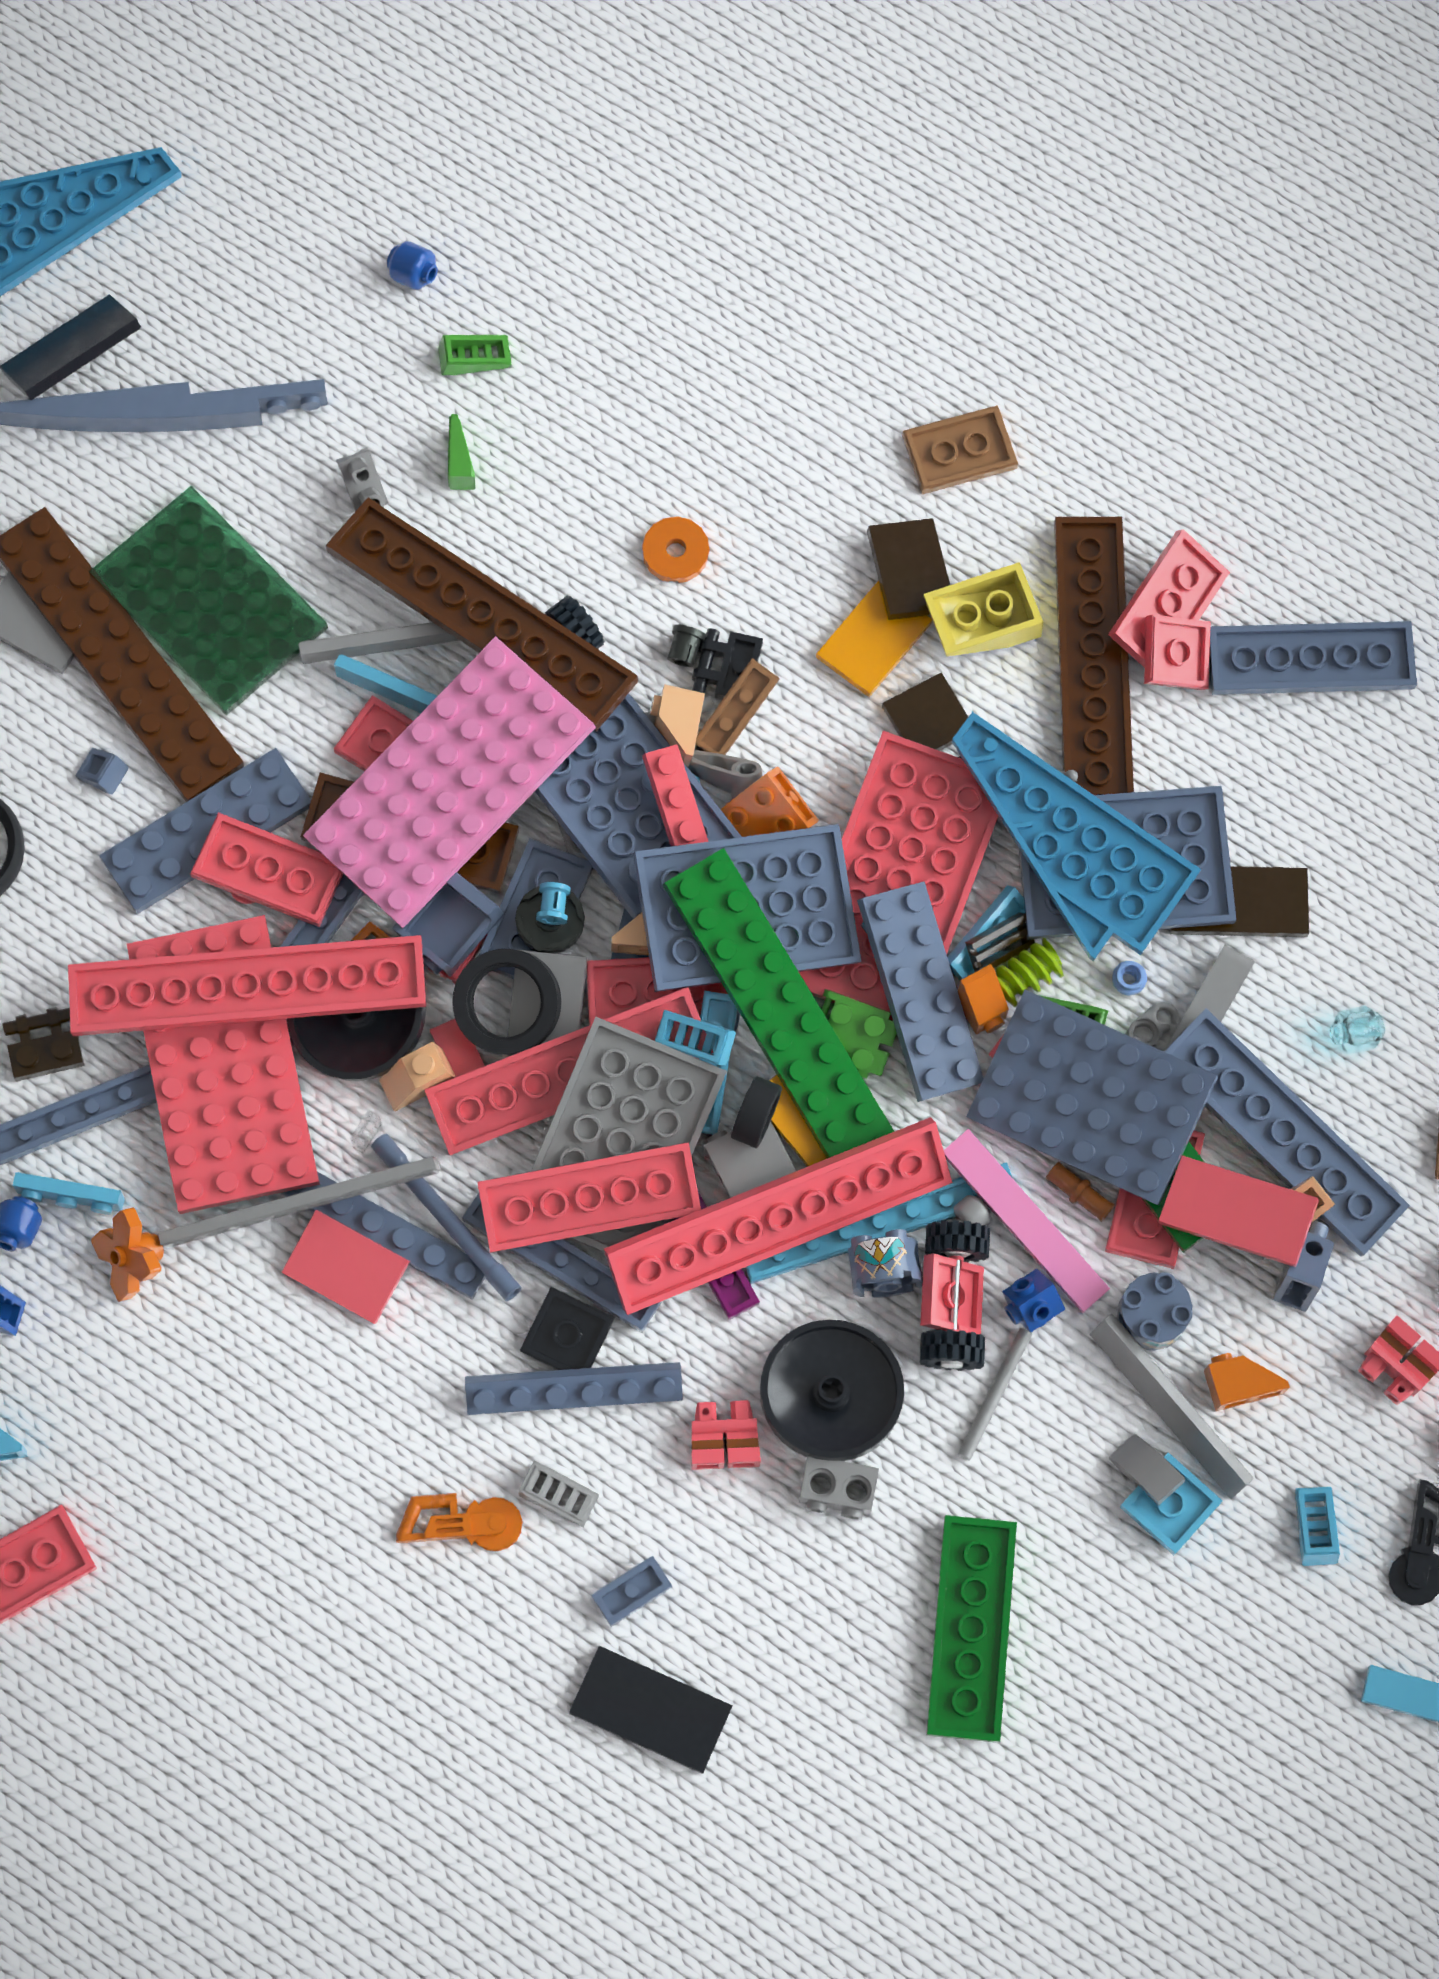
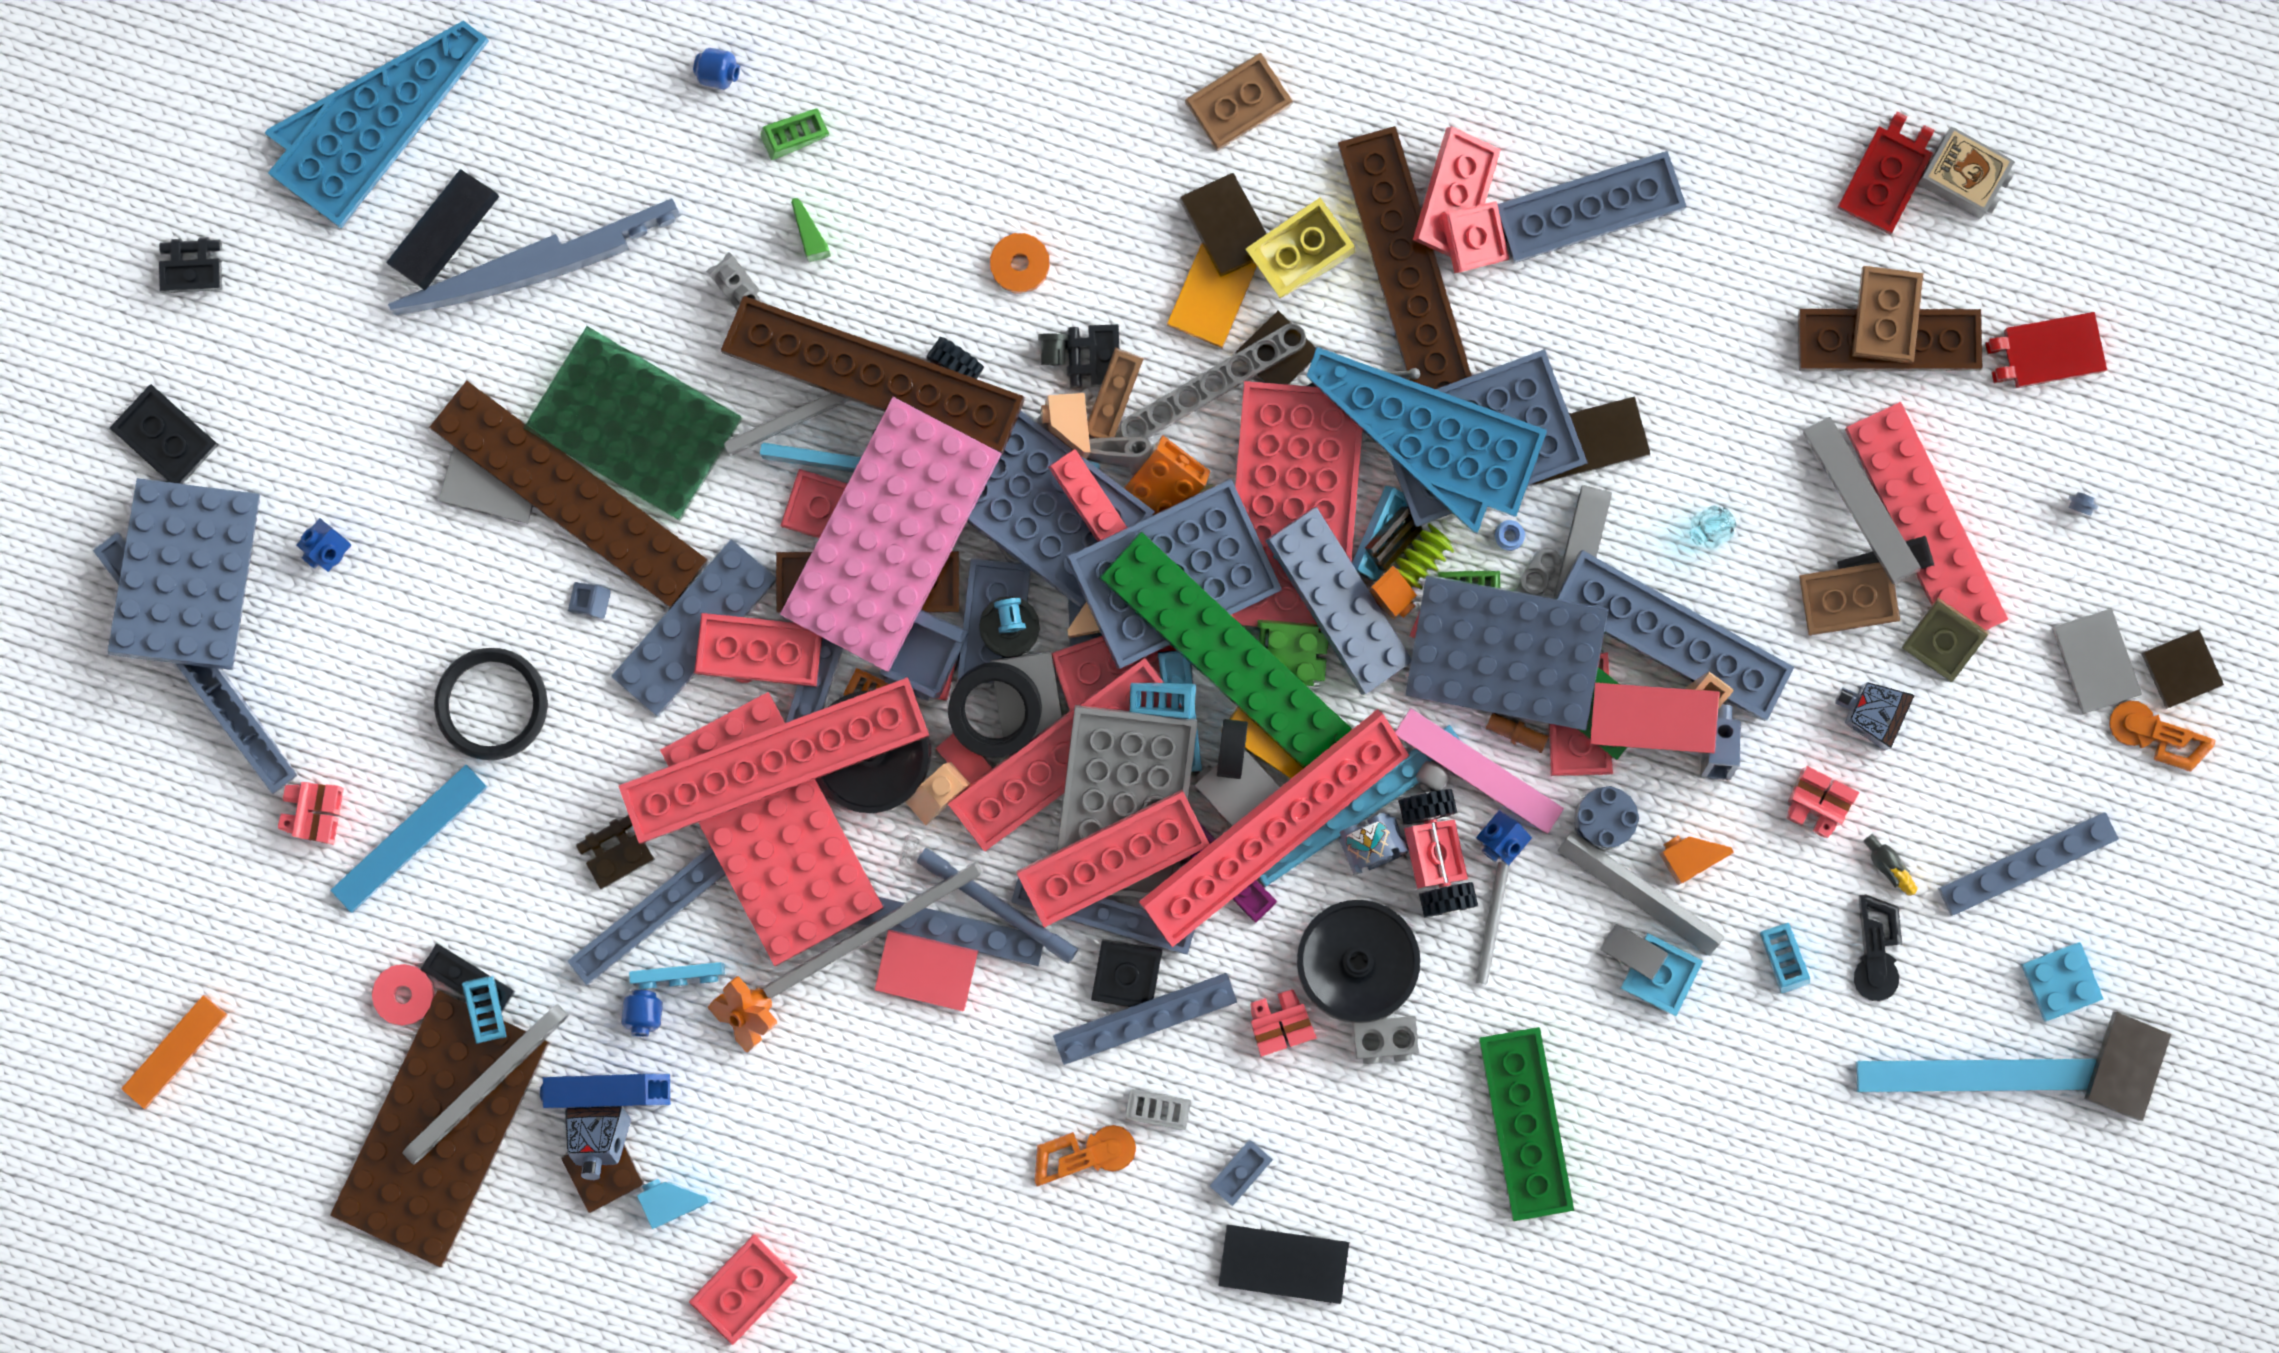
camera: 10 degrees left, 10 degrees up
(862, 716) = (1222, 370): none -> light grey beam

